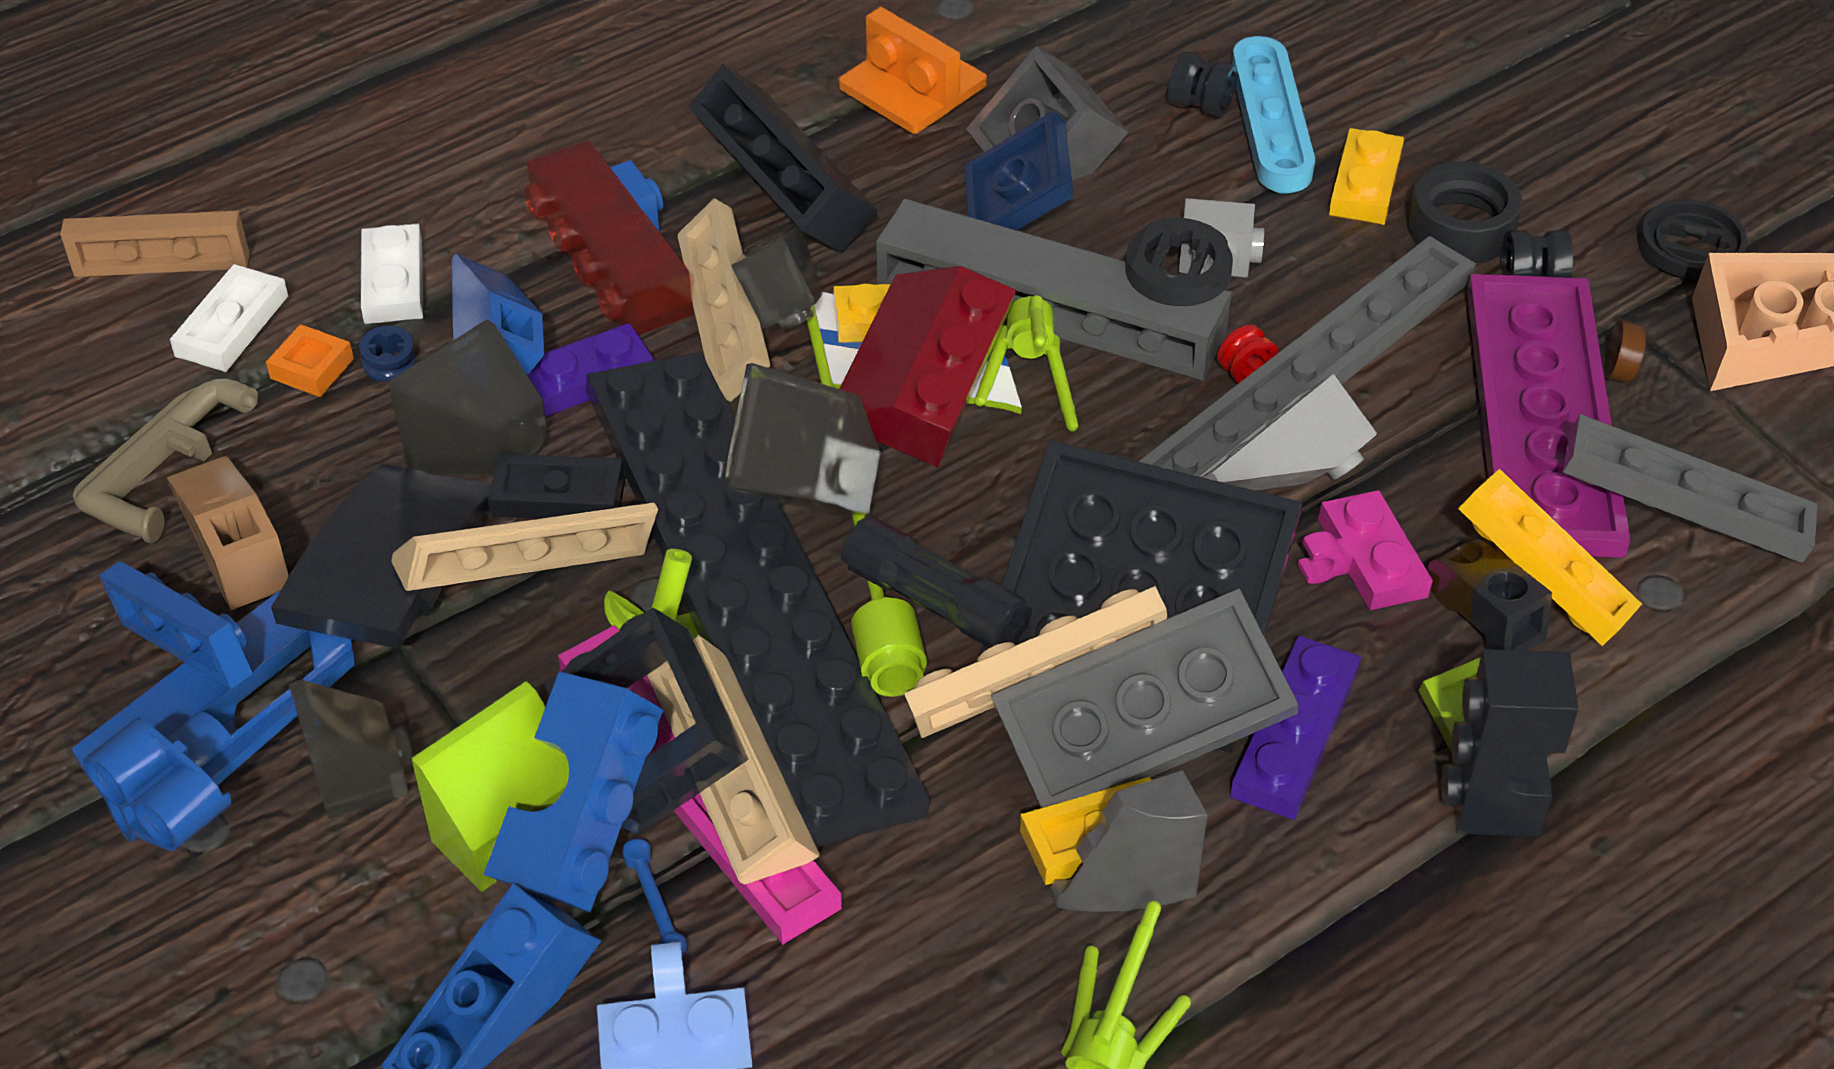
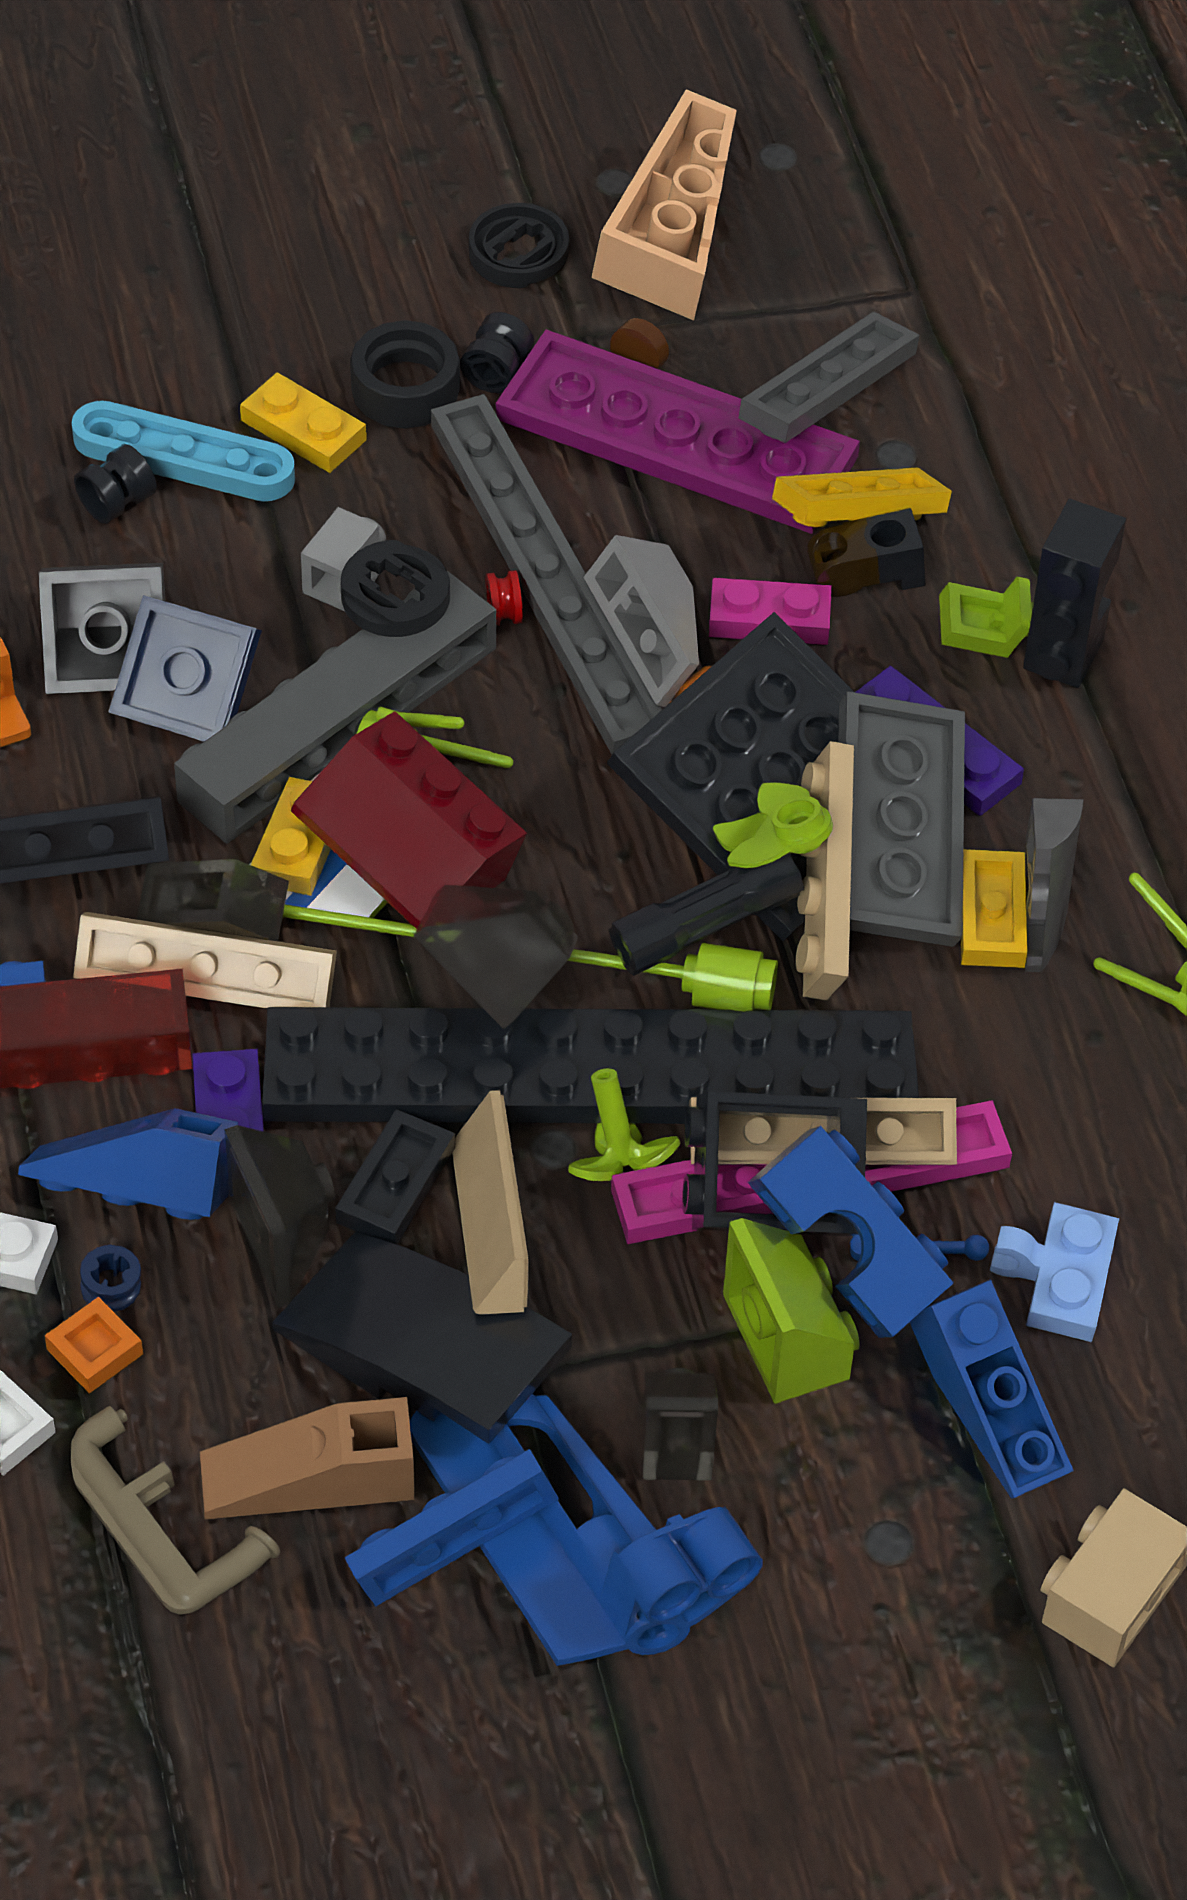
camera: 70 degrees left, 5 degrees up
(1035, 592) = (786, 824): none -> lime plate

